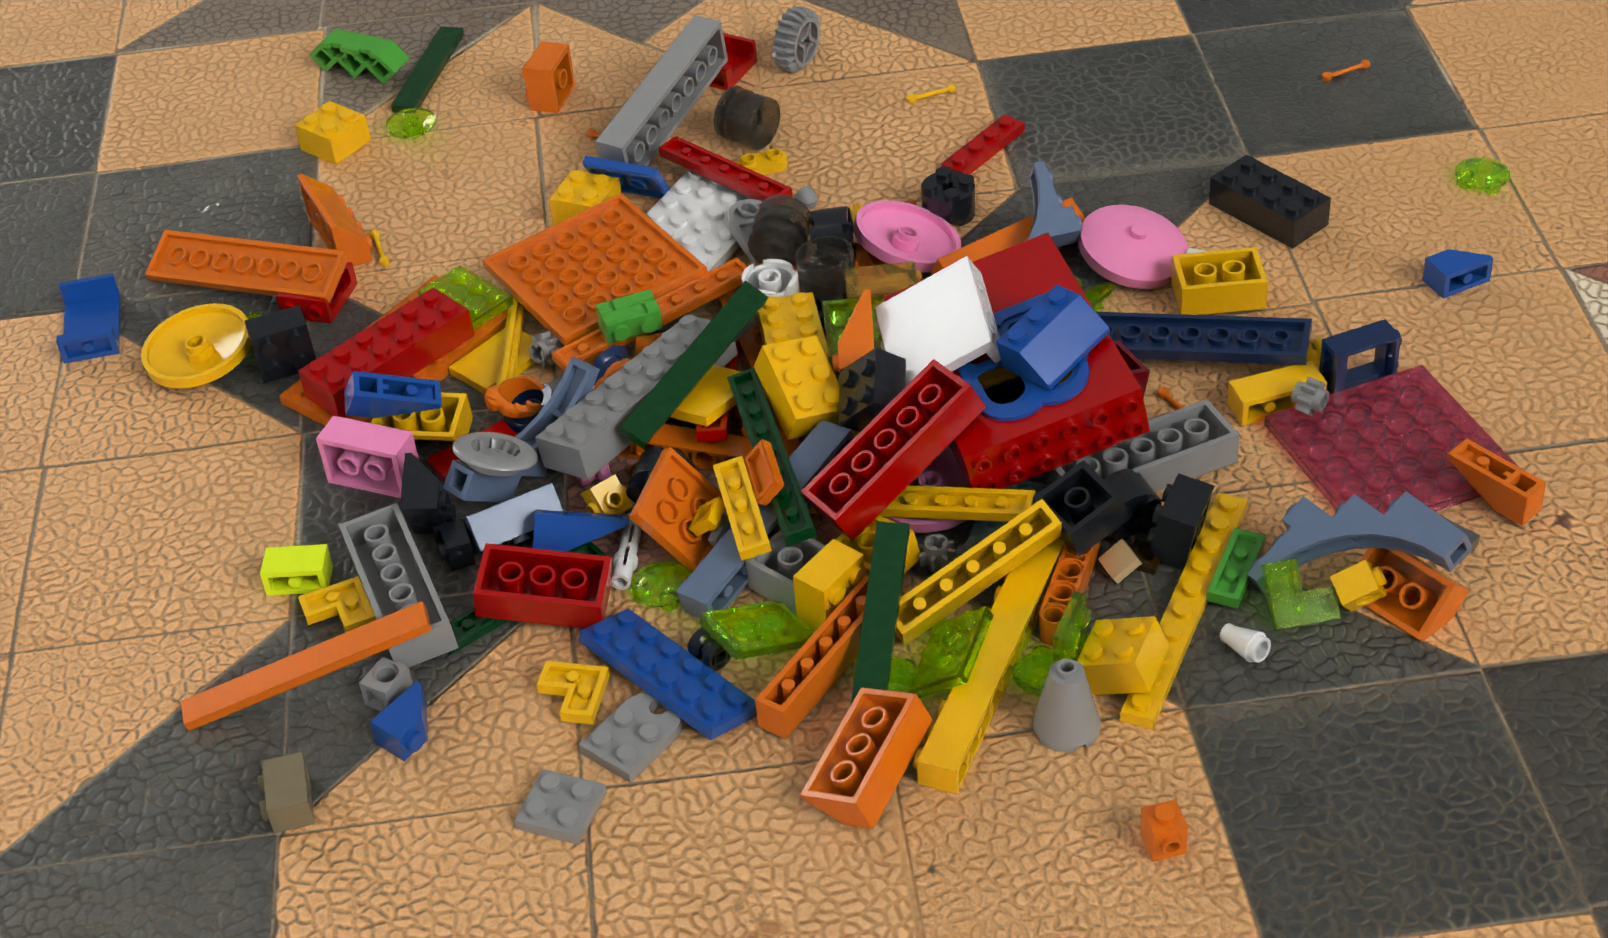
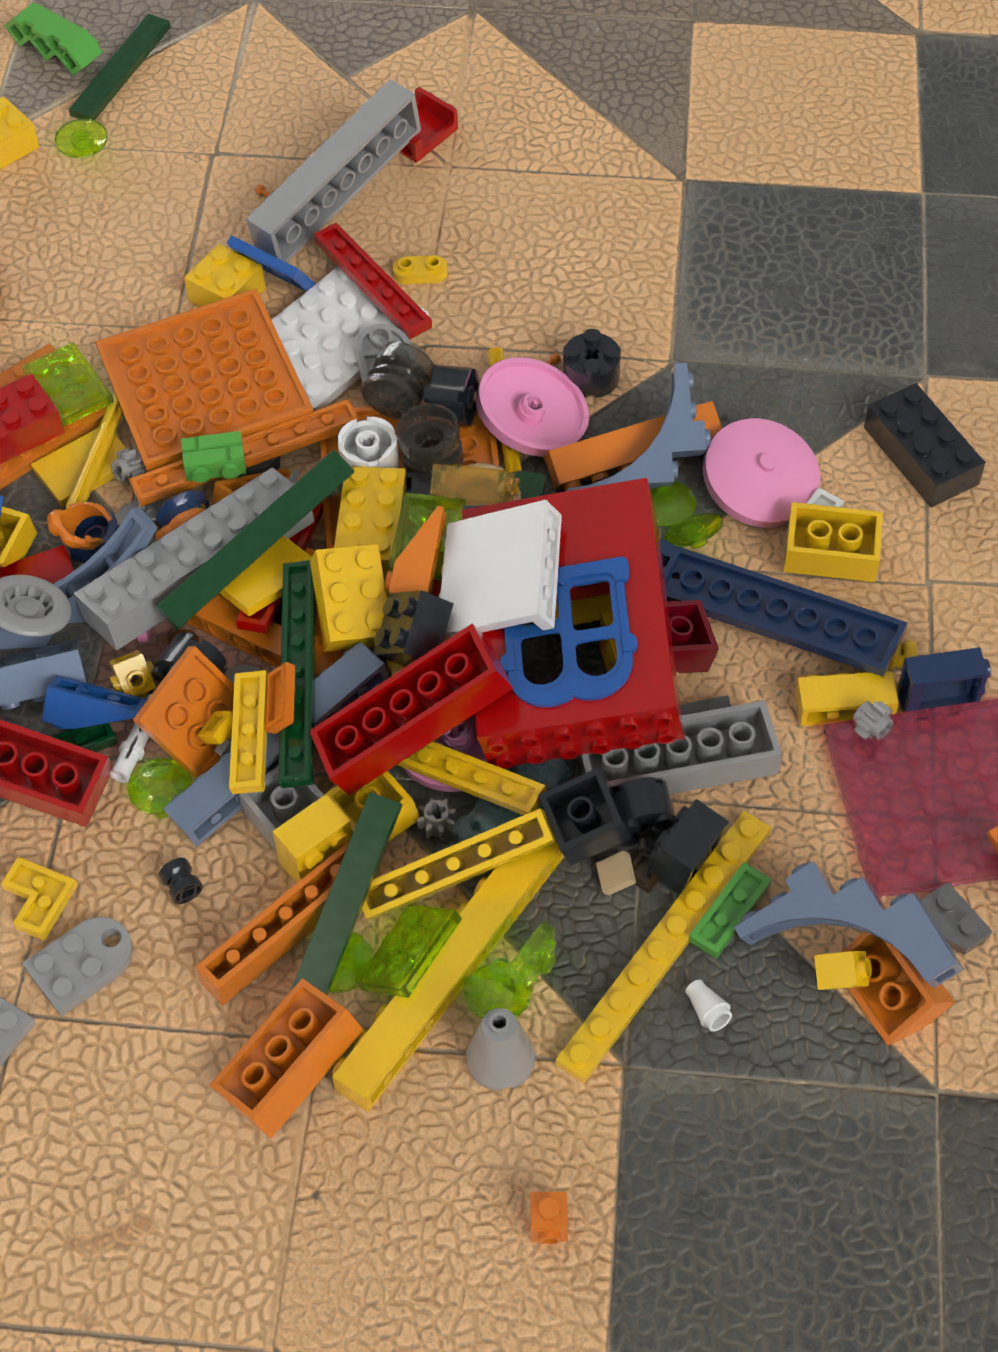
camera: 10 degrees right, 15 degrees up
(383, 260) = (8, 309): yellow hinge -> none
(549, 77) = (232, 112): orange brick -> none
(669, 673) = (132, 900): blue plate -> none
(746, 117) = (416, 212): clear smoke wheel -> none
(756, 629) = (228, 874): clear neon green plate -> none
(796, 39) = (499, 117): light grey gear -> none
(807, 196) = (449, 327): light grey hinge -> none
(911, 98) = (600, 216): yellow hinge -> none
(985, 145) = (652, 299): red plate -> none
(1051, 337) = (603, 623): blue slope -> none
(1070, 575) = (549, 896): orange beam -> none
(1123, 655) = (575, 998): yellow brick -> none
(1163, 393) = (733, 667): orange hinge -> none
(1292, 605) = (768, 973): clear neon green plate -> none

